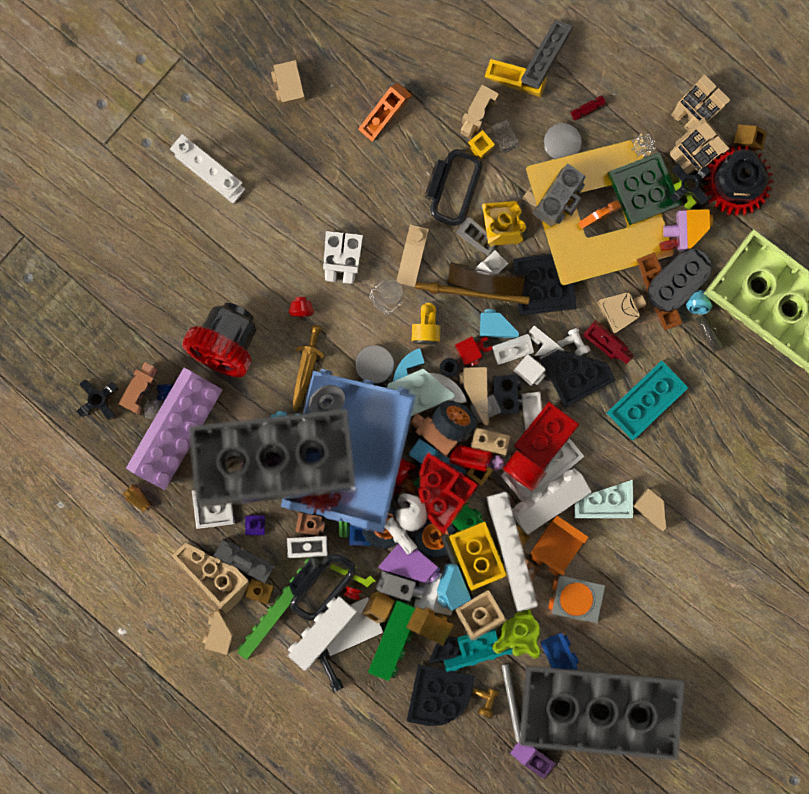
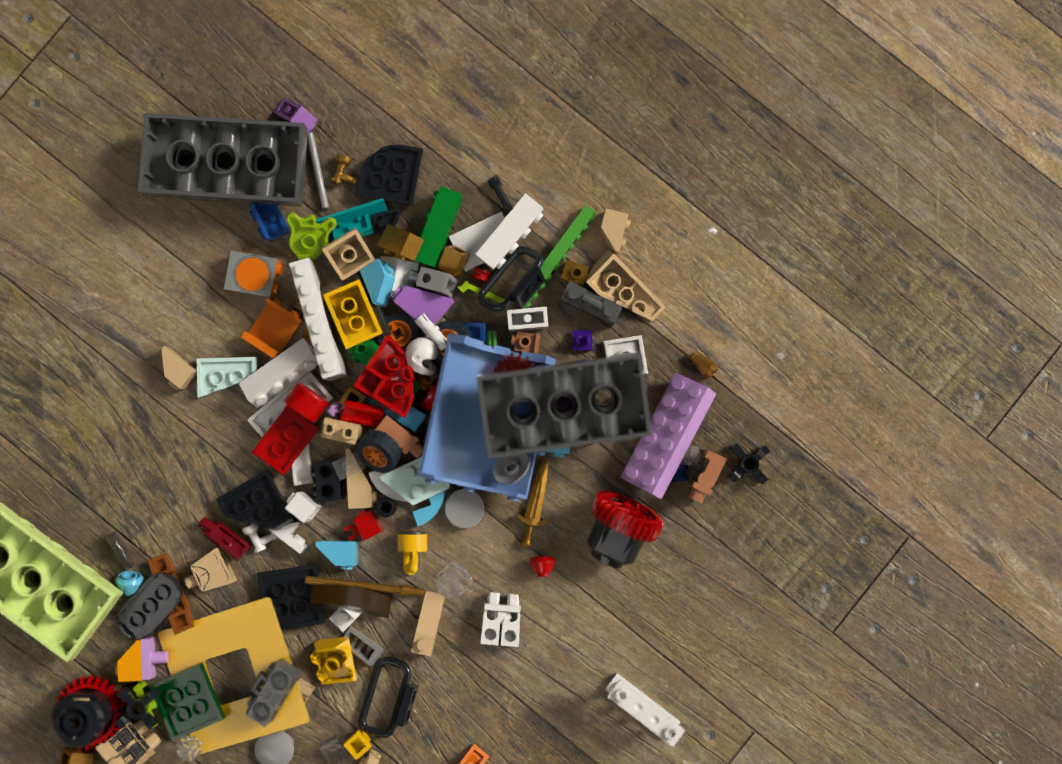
camera: 175 degrees right, 0 degrees up
(513, 349) = (322, 528): white plate -> none
(600, 214) = (235, 670): orange tile -> none
(647, 400) = (183, 479): teal plate -> none
(669, 245) = (161, 642): clear red tile -> none

